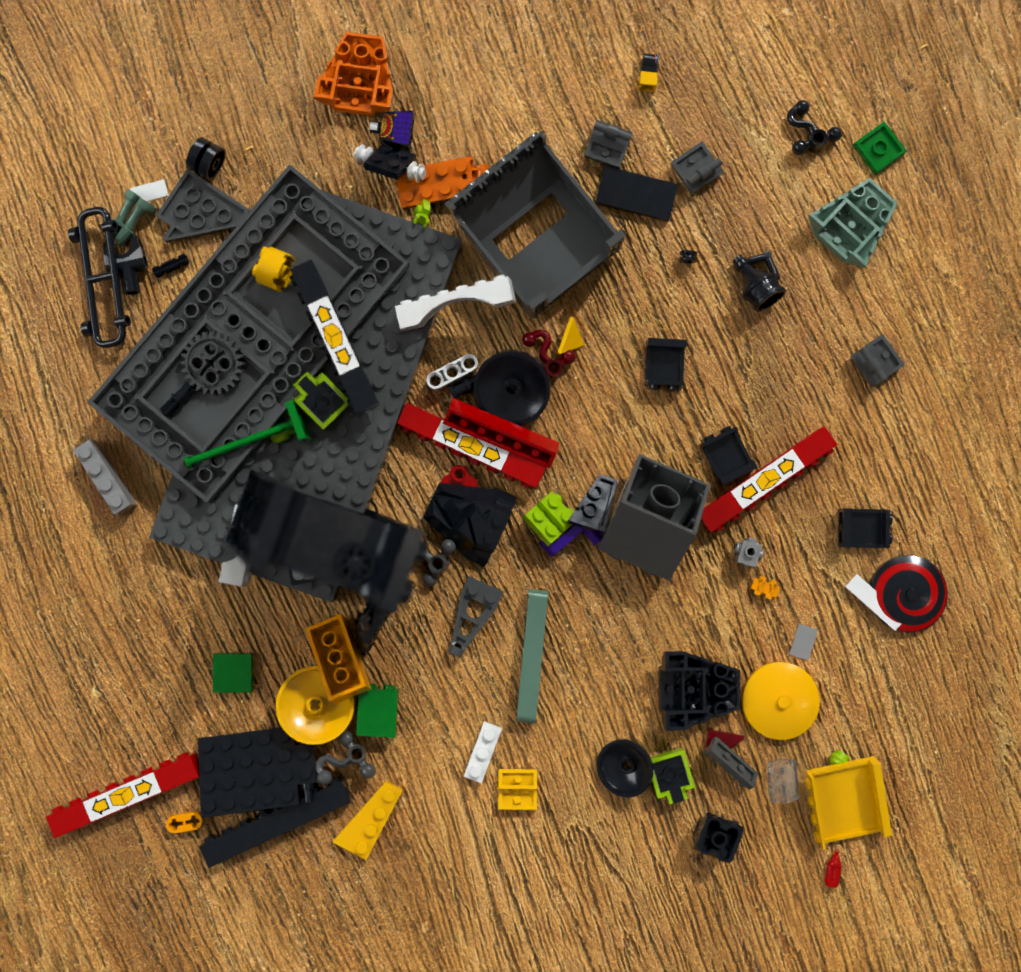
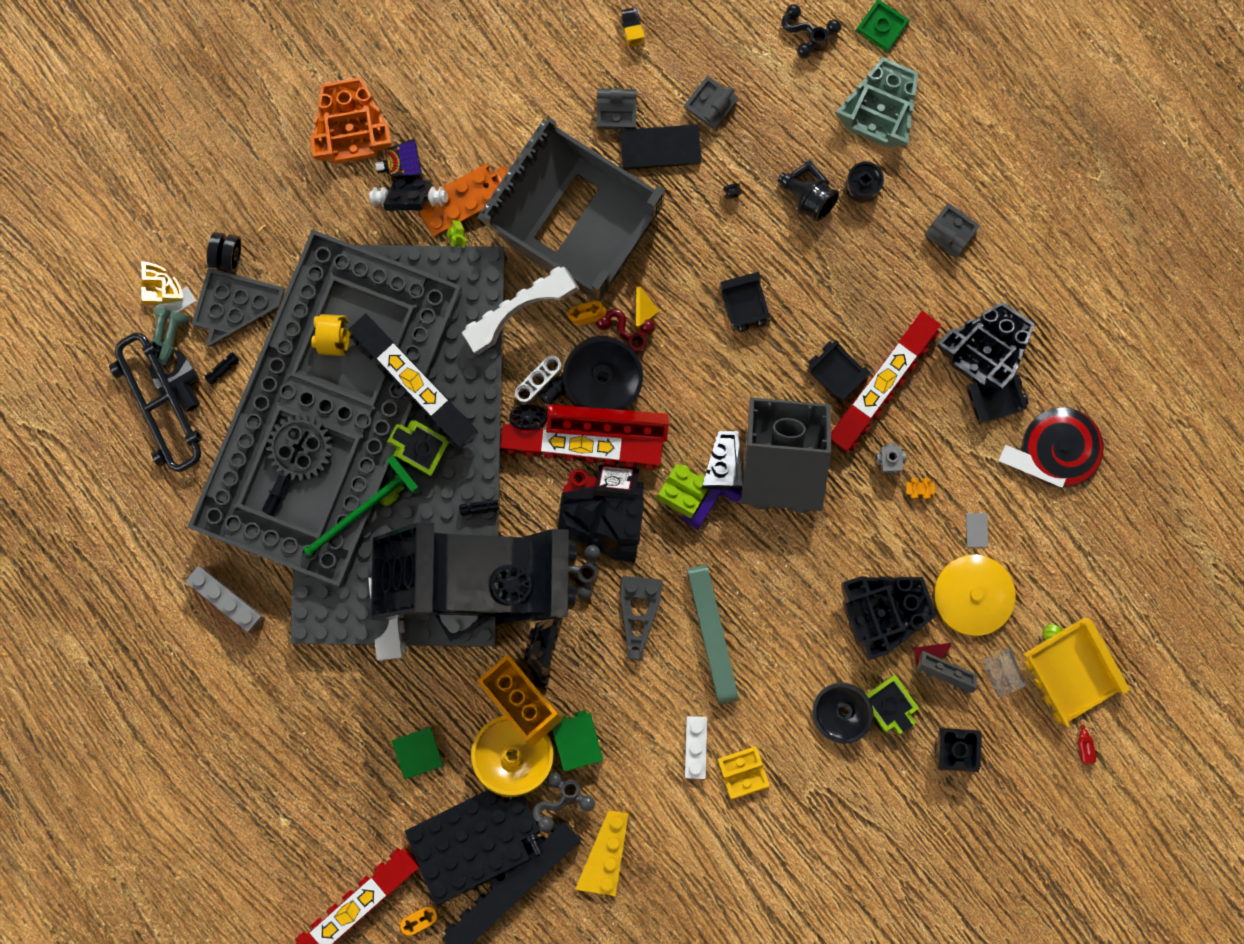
camera: 20 degrees left, 5 degrees down
(137, 170) = (158, 286): none -> yellow brick
(358, 472) = (479, 507): none -> black axle
(431, 403) = (528, 417): none -> black wheel
(491, 490) = (616, 482): none -> tile
(517, 324) = (587, 313): none -> light orange beam
(821, 285) = (873, 178): none -> black wheel
(874, 480) = (989, 346): none -> black wedge

